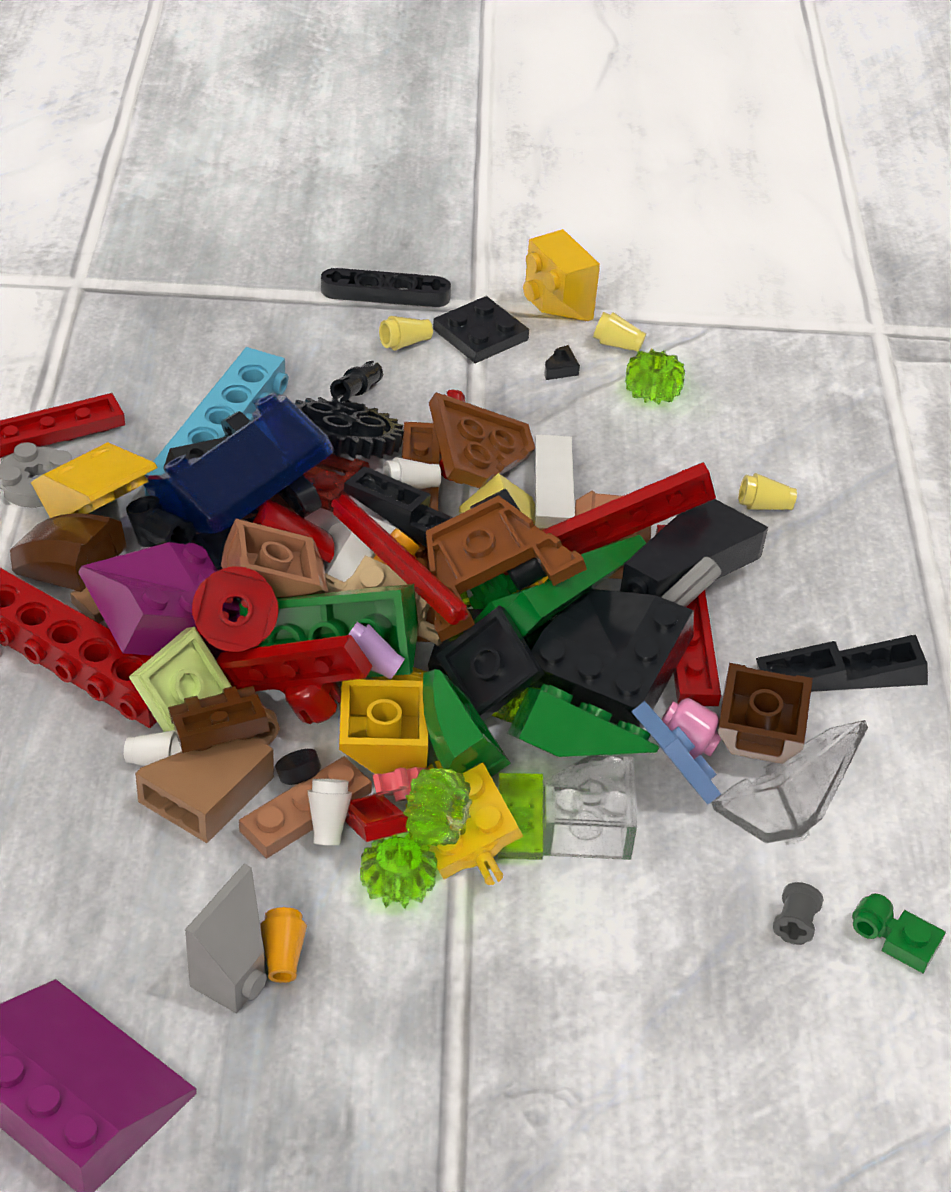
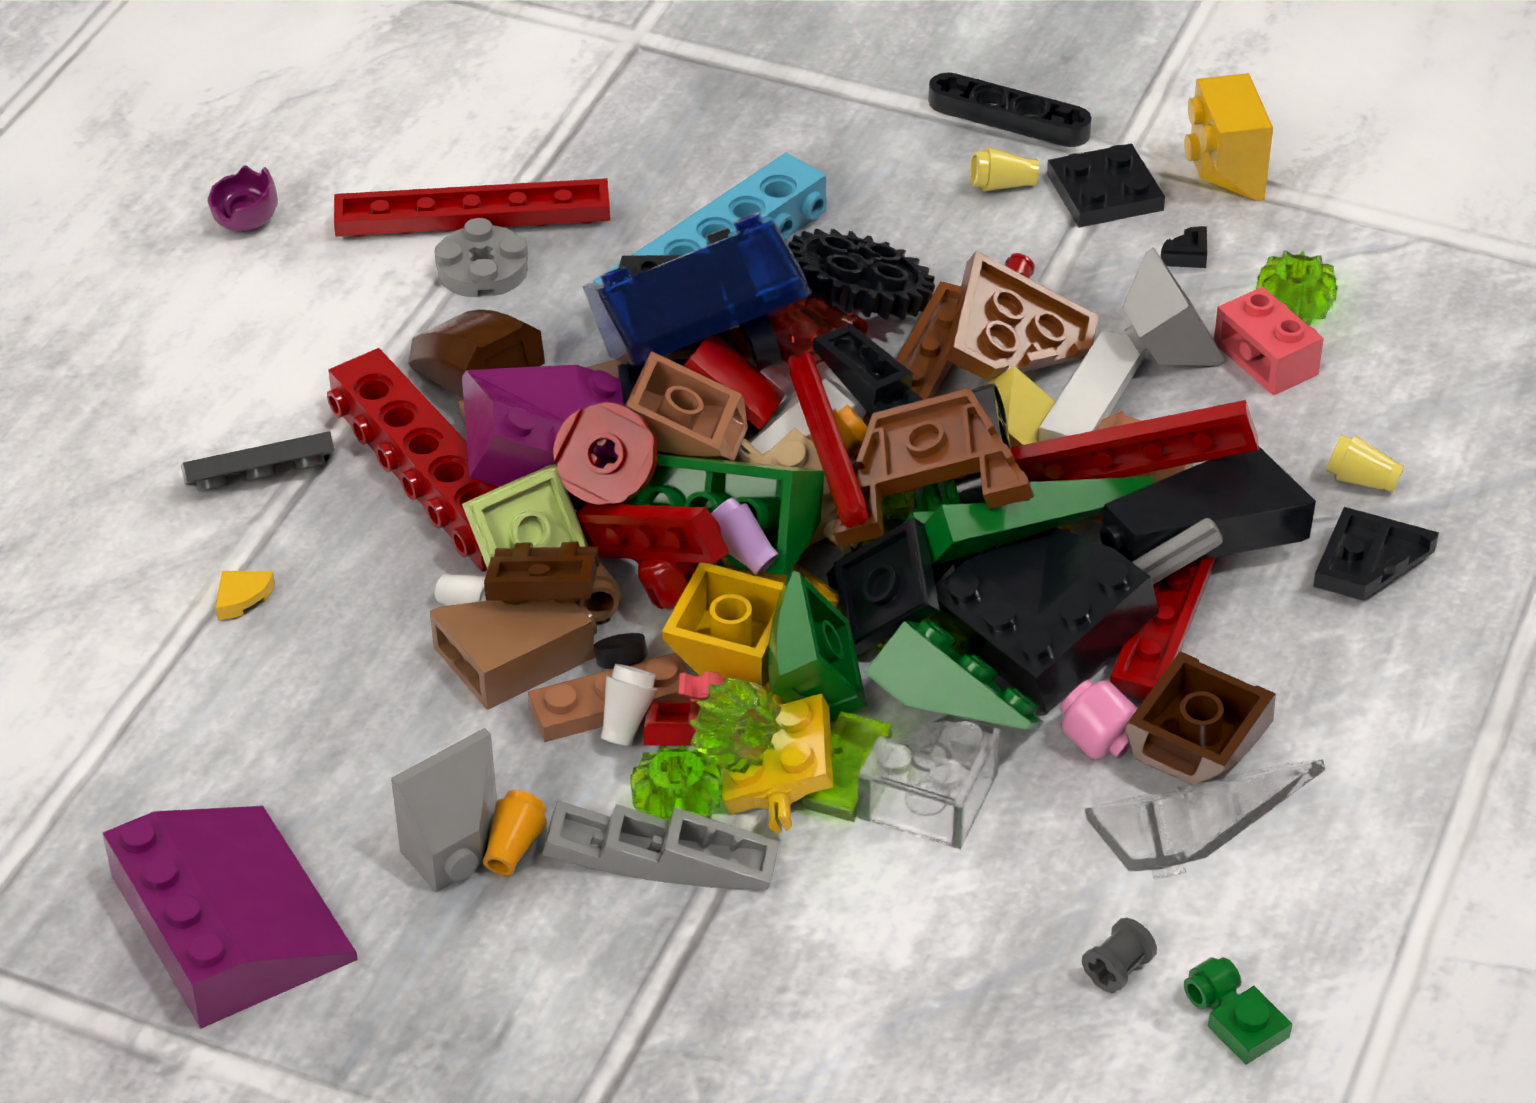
camera: 25 degrees right, 0 degrees up
(91, 480) = (527, 275): yellow slope -> none
(157, 526) = (584, 341): black piece -> none
(356, 381) = (907, 220): black pin -> none
(413, 472) = (910, 345): white cone -> none
(414, 924) = (675, 850): none -> light grey slope
(585, 414) = (1166, 319): none -> light grey slope
(619, 333) = (1280, 222): light yellow cone -> none
(655, 418) = (1268, 340): none -> coral brick
(677, 748) = (1059, 742): medium blue wing -> none
(804, 557) = (1370, 553): none -> black wing
(868, 666) = (1383, 703): black slope -> none

